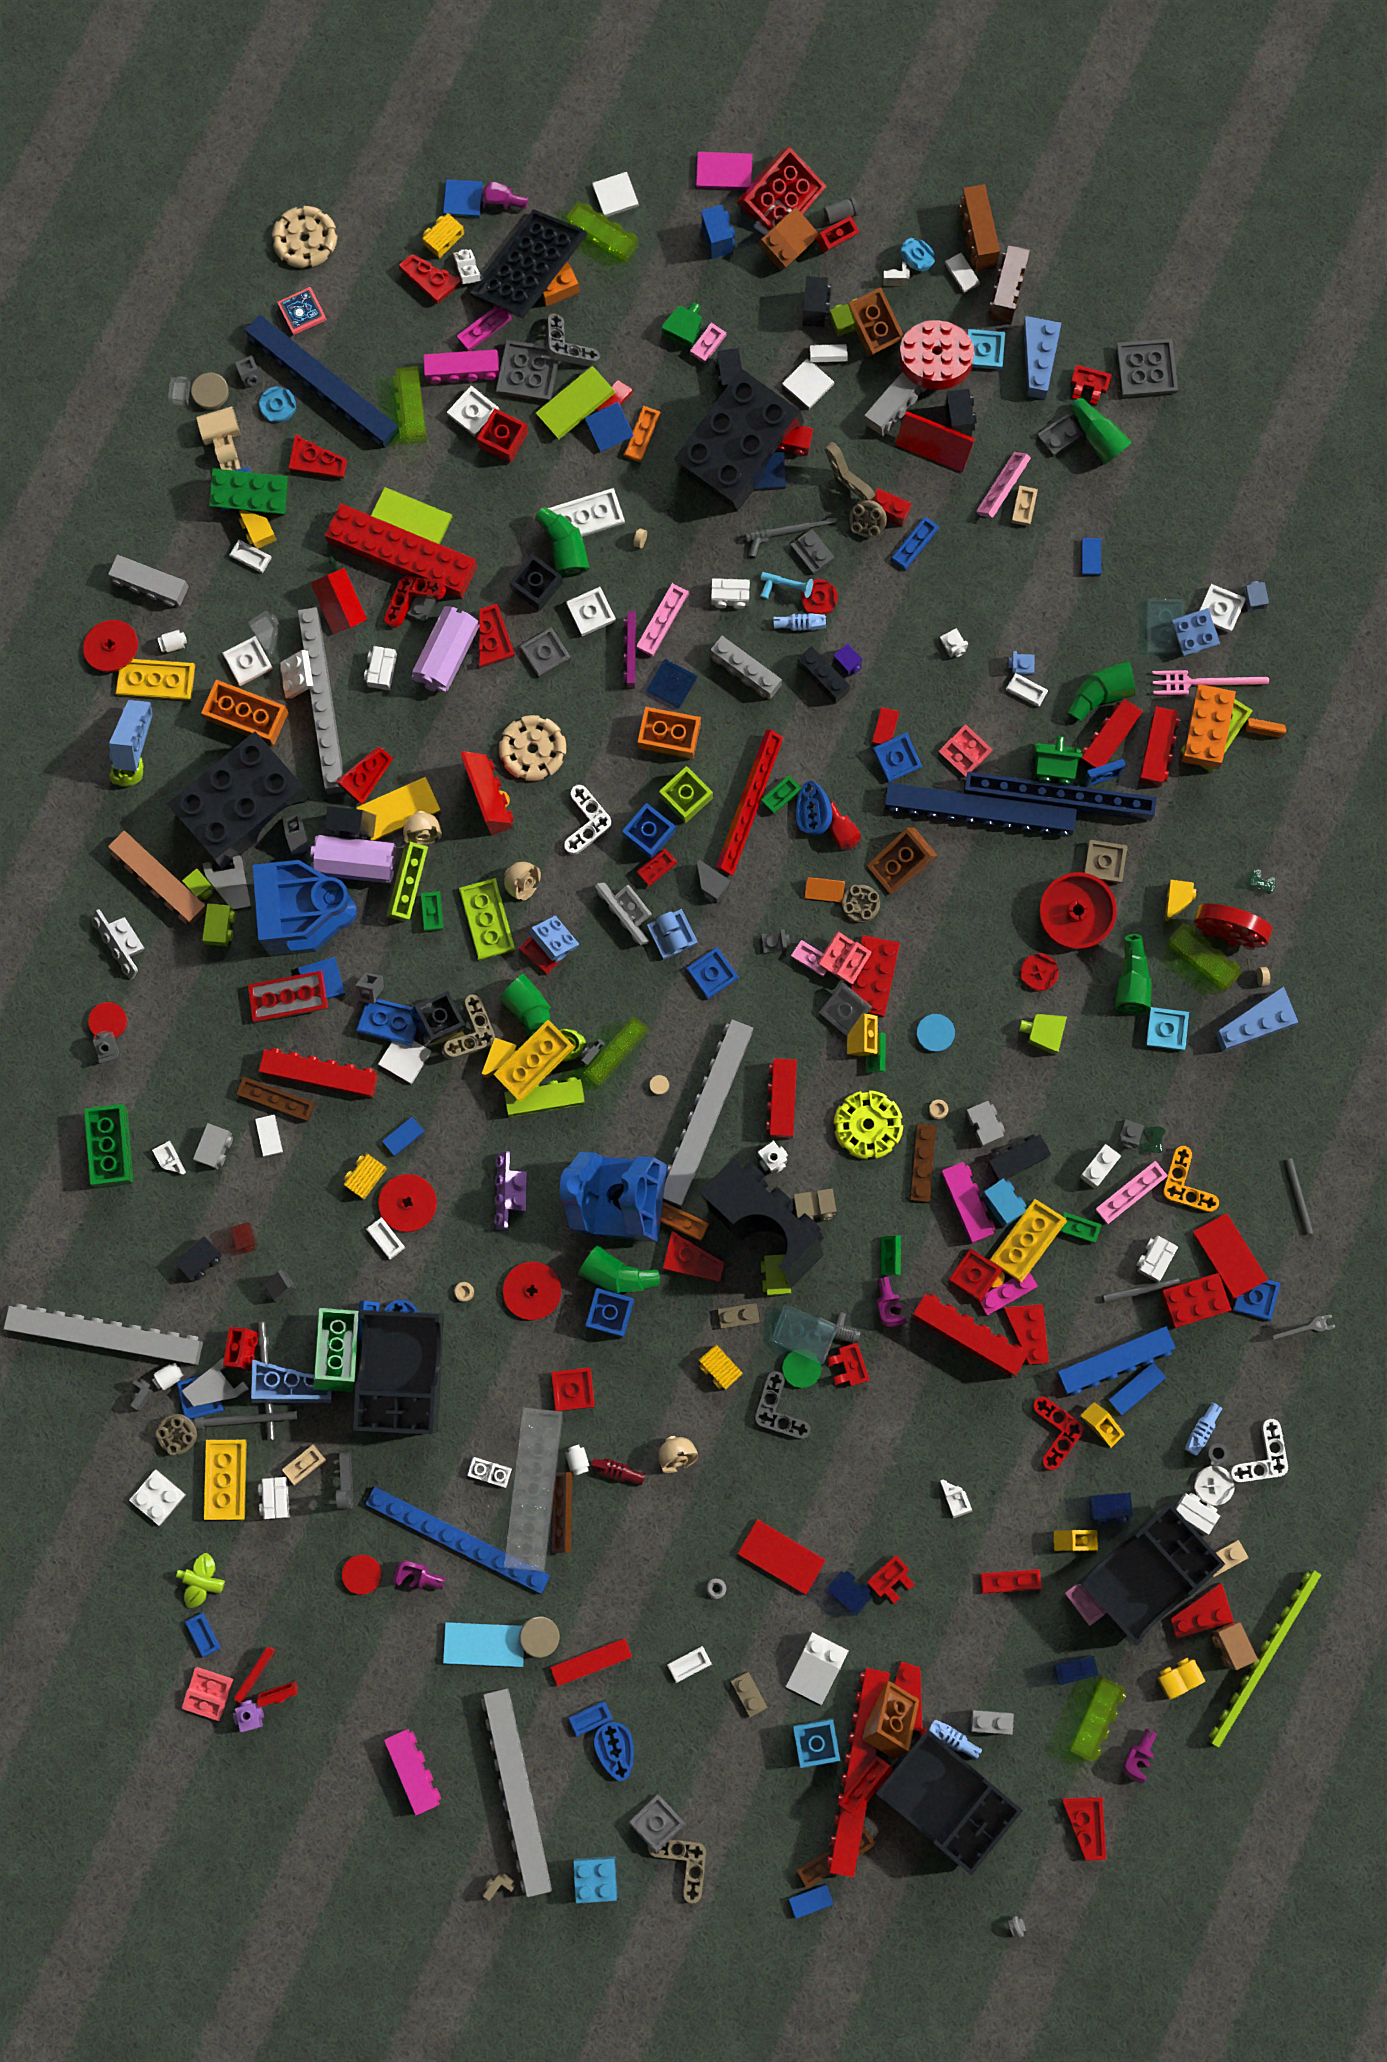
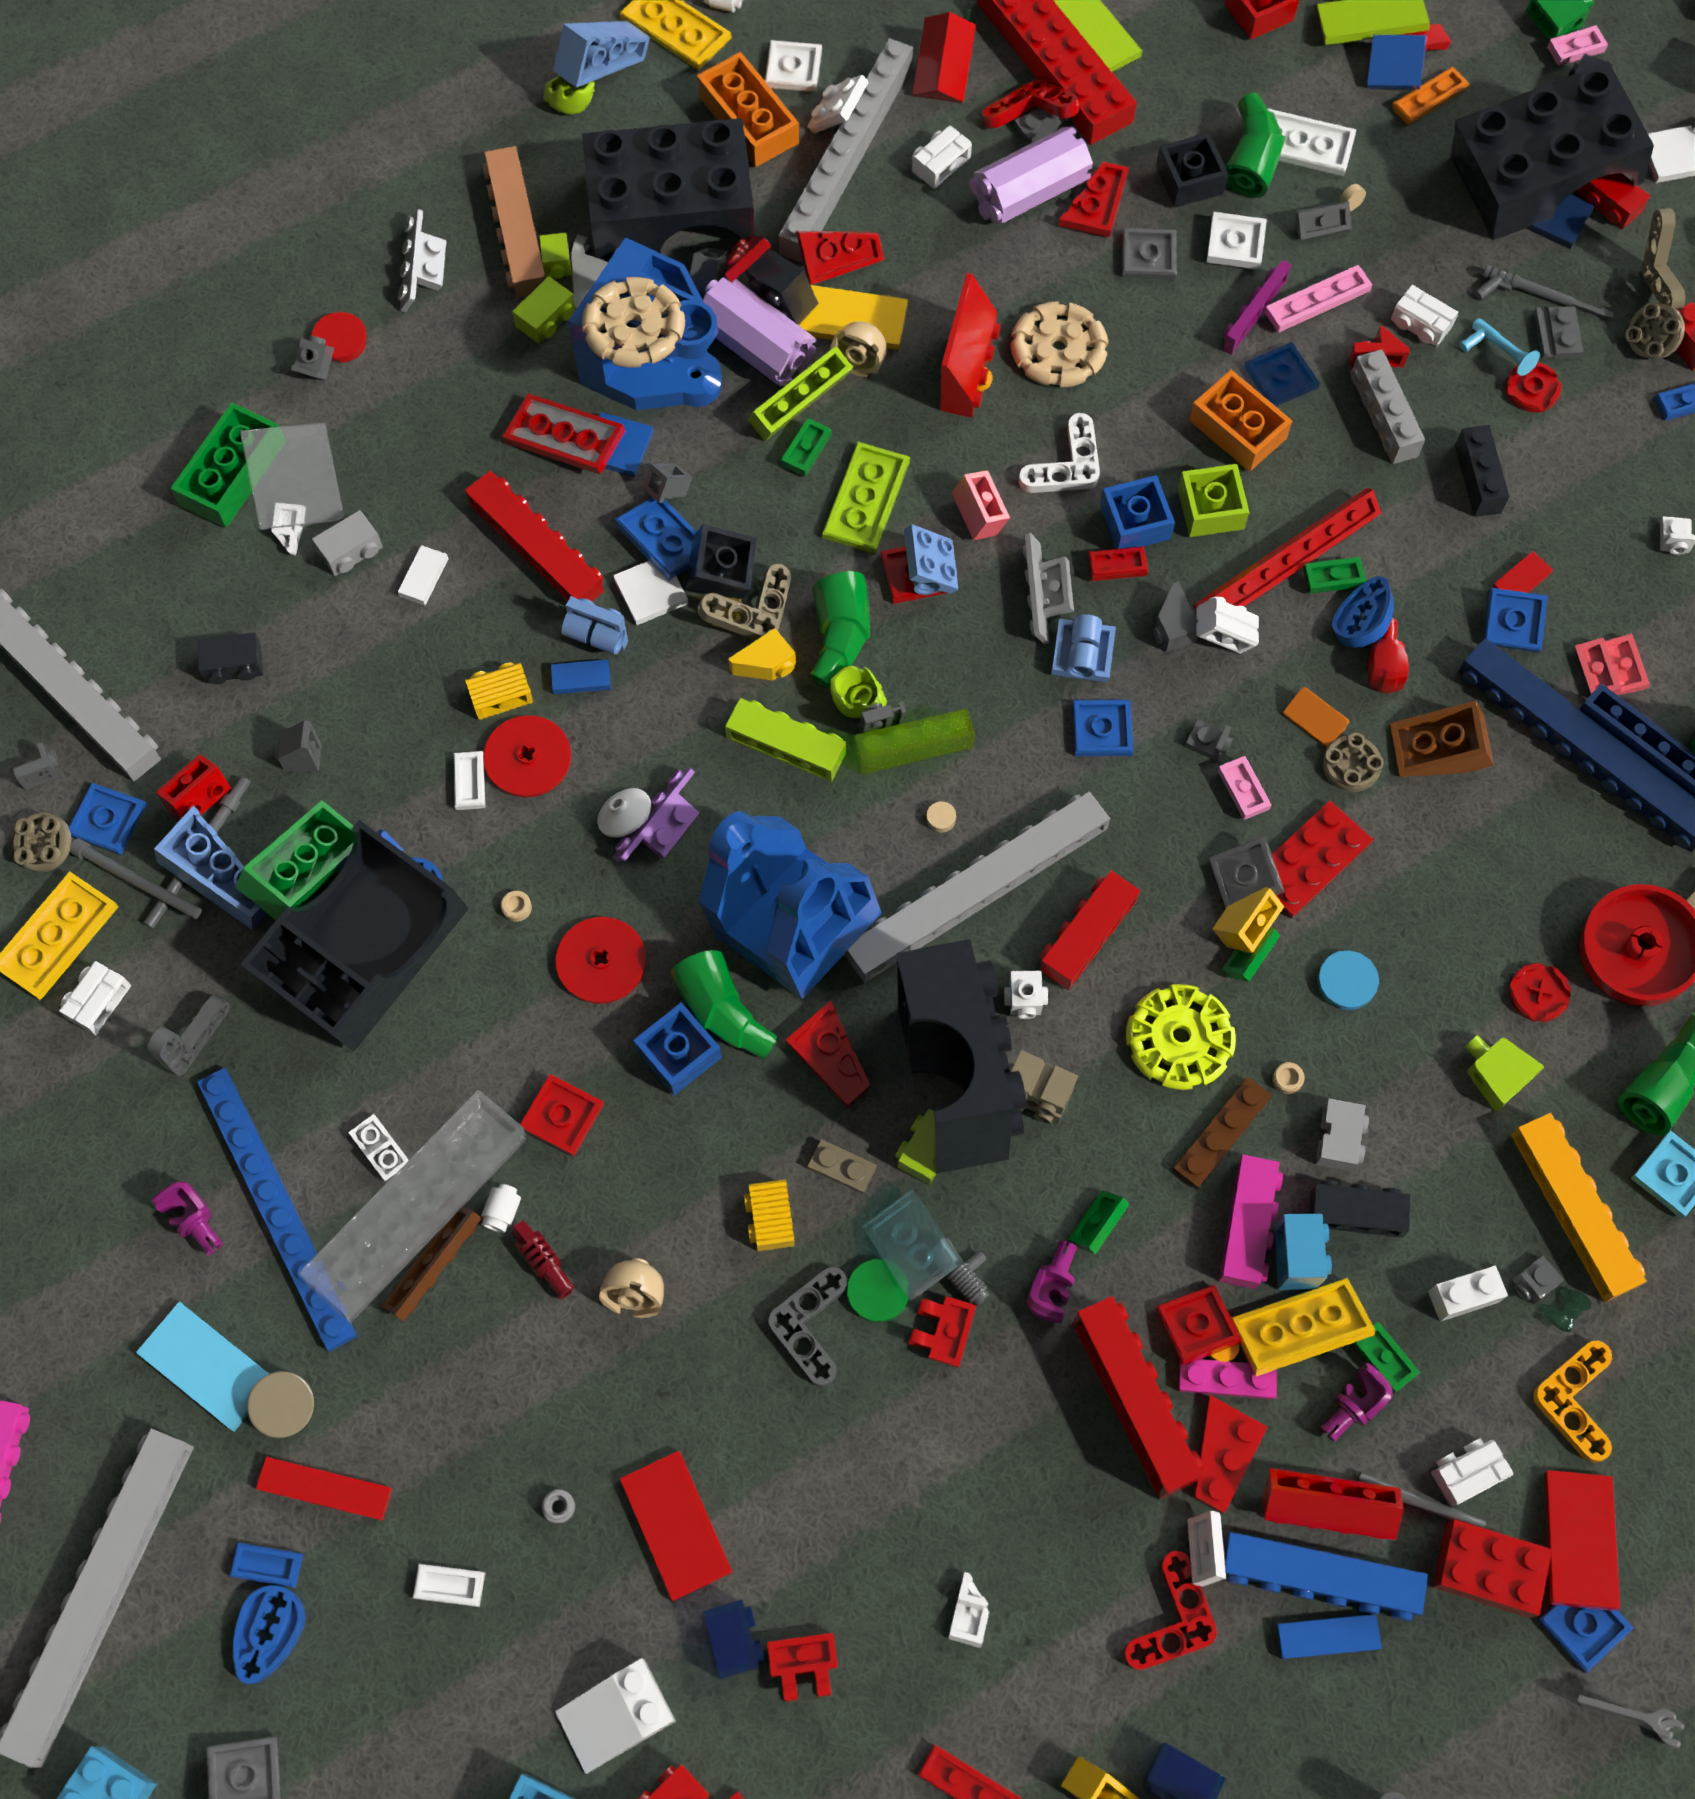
camera: 30 degrees right, 10 degrees down
(152, 1128) = (292, 475): none -> clear piece
(167, 1376) = (86, 768): white brick -> none
(212, 1387) = (126, 815): light grey flag -> none
(244, 1237) = (302, 667): clear red brick -> none
(266, 631) = (837, 45): clear slope -> none
(275, 1099) = (462, 538): reddish brown plate -> none
(290, 909) = (638, 308): none -> tan plate
(304, 1465) = (161, 982): tan plate -> none
(317, 817) = (744, 255): none -> red wing
(361, 1574) = (125, 1167): red tile -> none
(401, 1100) = (596, 625): none -> medium blue plate
(491, 1203) = (624, 812): none -> white dish
(520, 880) = (941, 471): tan cylinder -> none
(534, 1060) = (803, 680): yellow plate -> none
(557, 884) = (980, 505): none -> coral brick
(633, 565) = (1323, 220): none -> dark grey plate
(683, 1222) = (853, 1000): orange tile -> none
(721, 628) = (1393, 348): none -> red slope
(743, 868) = (1227, 625): none -> white brick
(749, 1694) = (498, 1686): dark tan piece -> none
(801, 622) = (1504, 404): light blue hinge -> none
(844, 958) = (1287, 810): coral slope -> none
(848, 660) = (1524, 473): dark purple brick -> none
(1051, 1387) = (1206, 1548): none -> white plate
(1083, 1263) = (1375, 1396): none -> magenta piece
(1099, 1322) = (1332, 1504): none -> red brick
(1102, 1424) = (1247, 1652): yellow slope -> none
(1128, 1081) = (1578, 1207): none -> light orange brick
(1131, 1192) = (1489, 1358): bright pink plate -> none
(1203, 1430) = (1390, 1762): light blue hinge -> none

